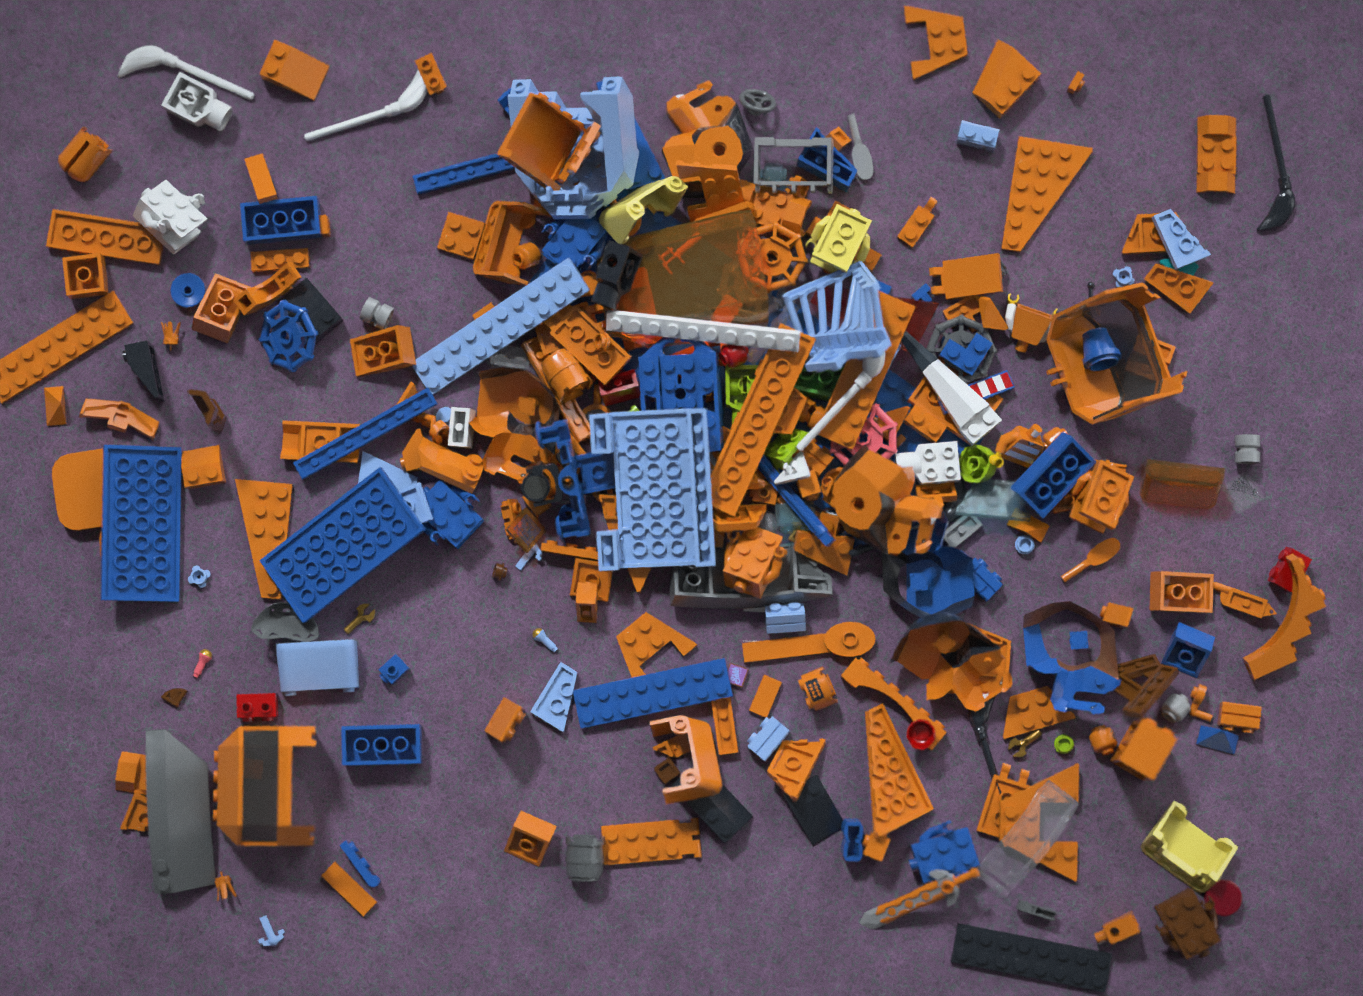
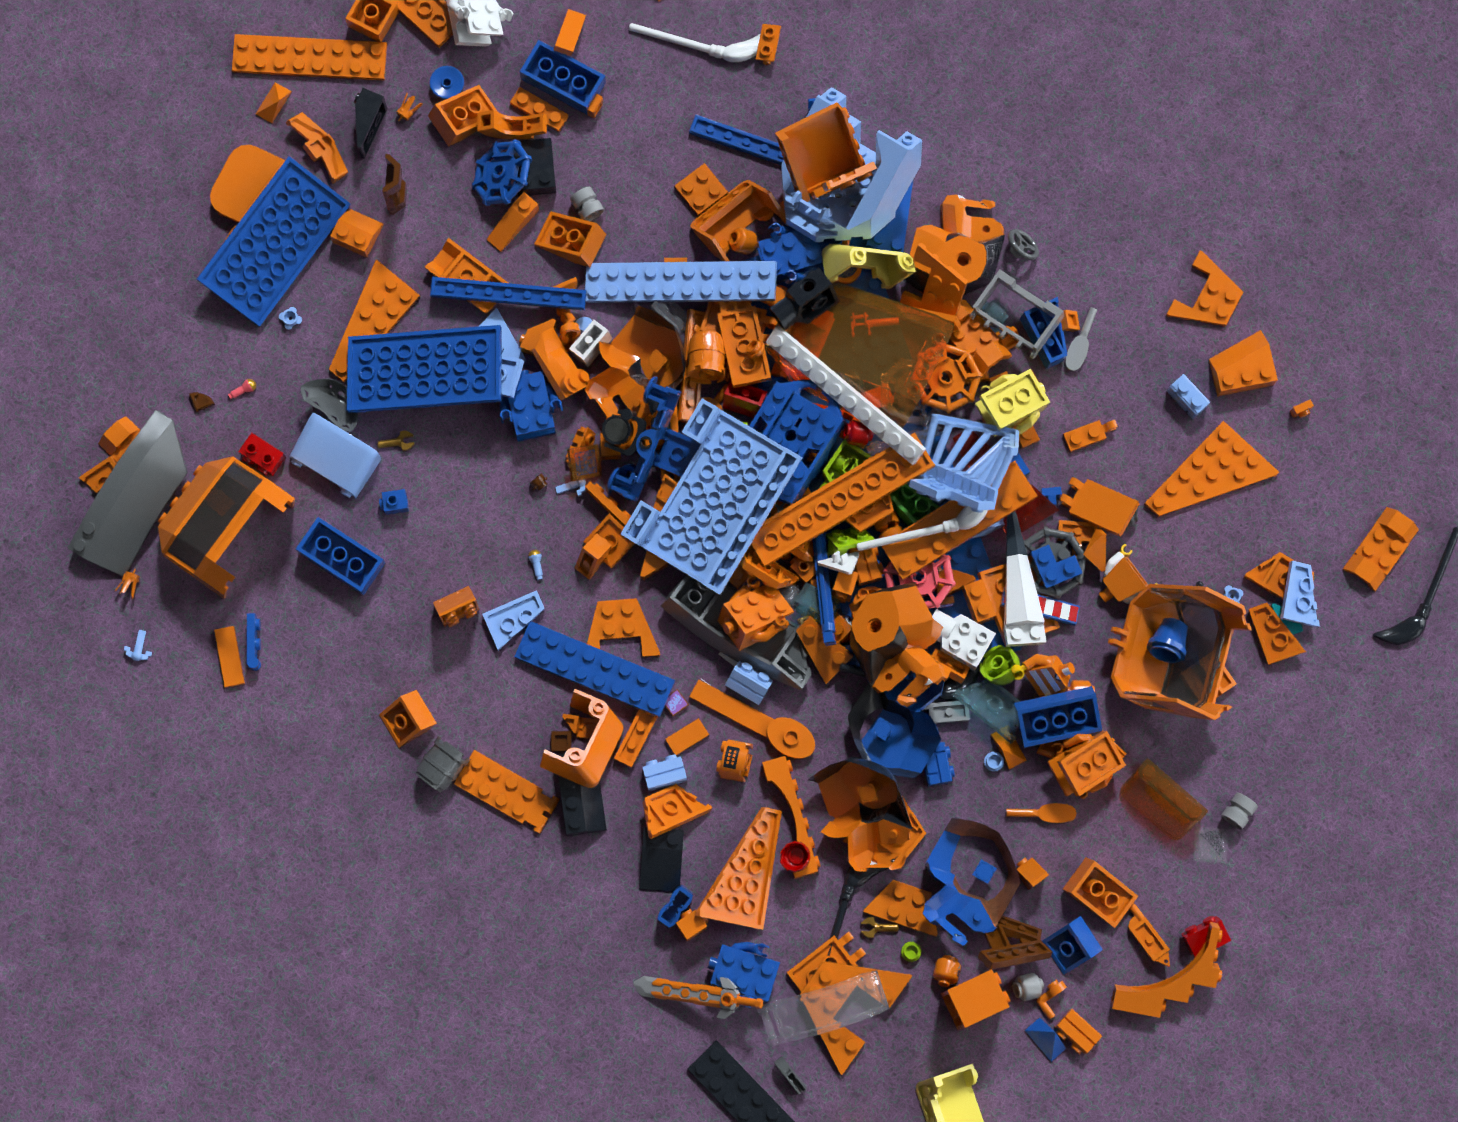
camera: 25 degrees right, 5 degrees down
(326, 370) = (513, 221): none -> orange slope

